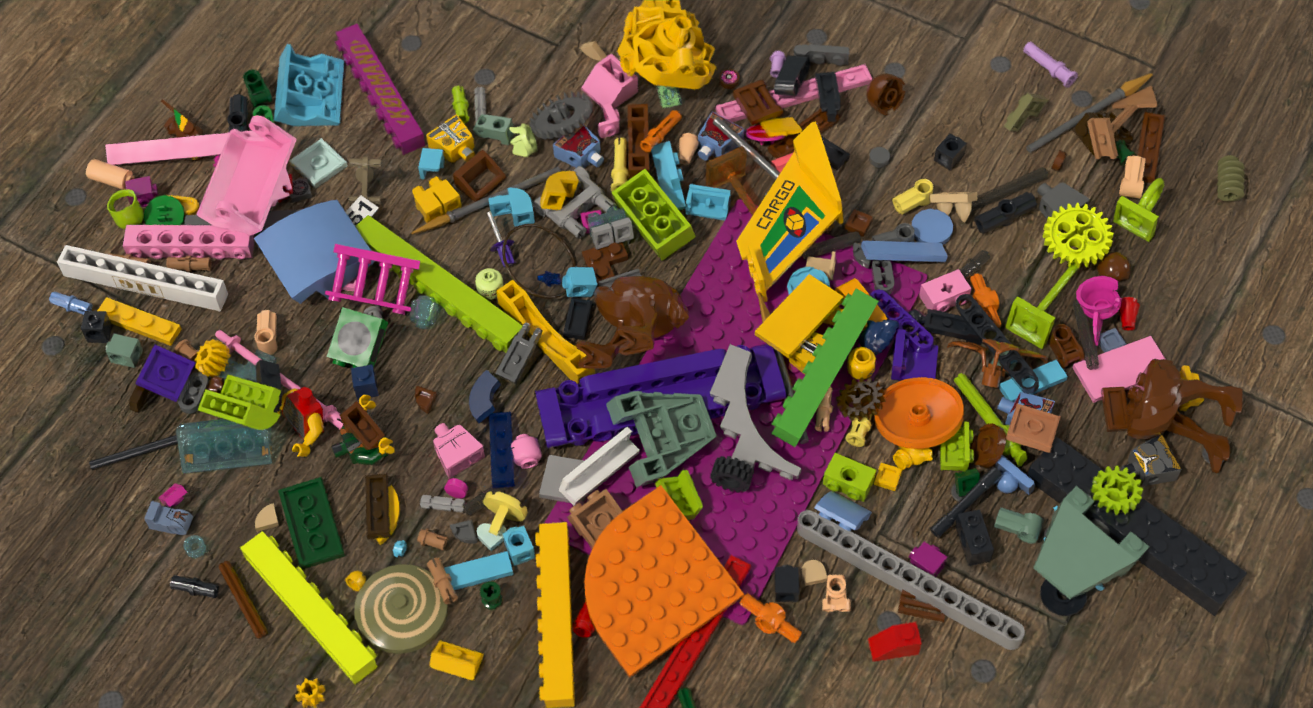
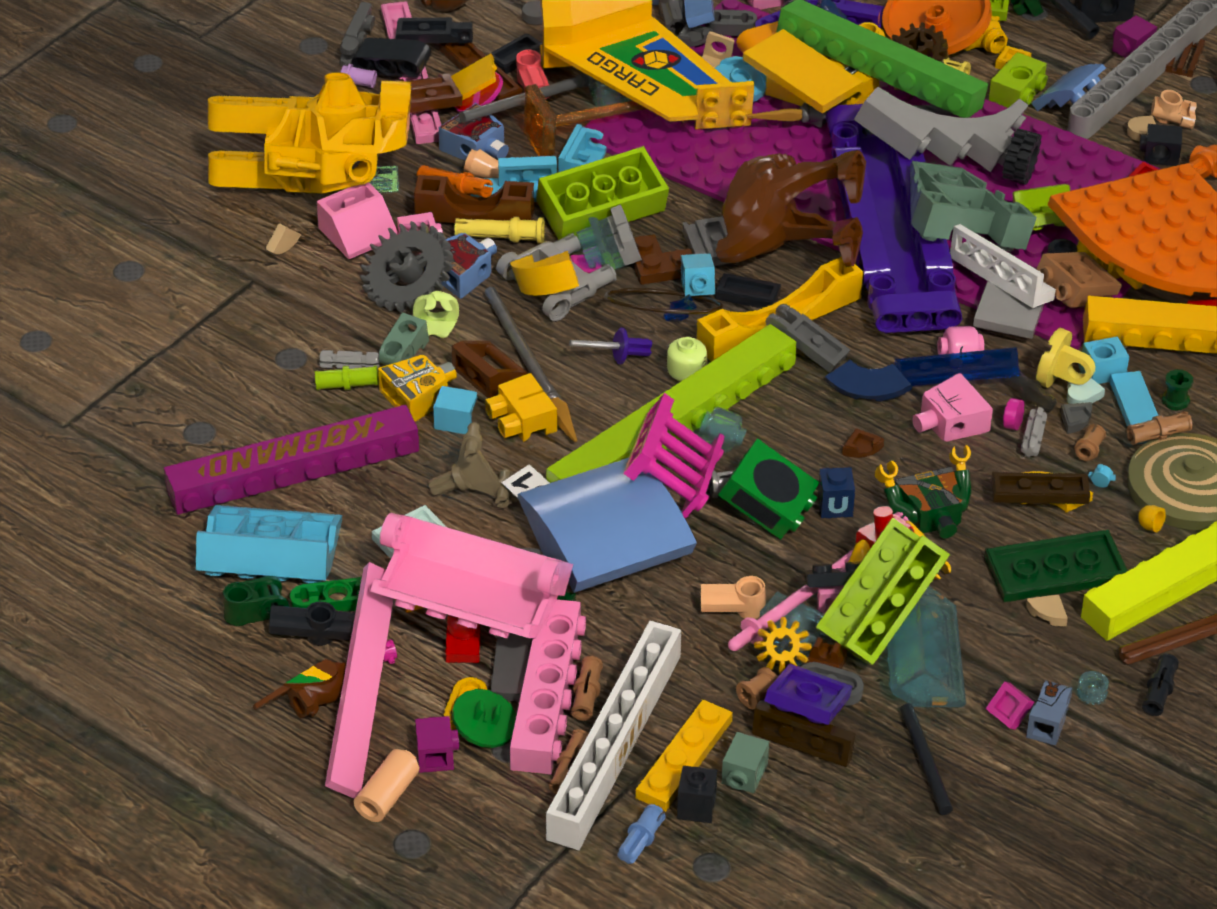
camera: 85 degrees left, 15 degrees down
(129, 215) = (481, 756): lime helmet -> none
(363, 427) = (927, 472): reddish brown slope -> none
(515, 202) = (551, 327): medium azure brick -> none

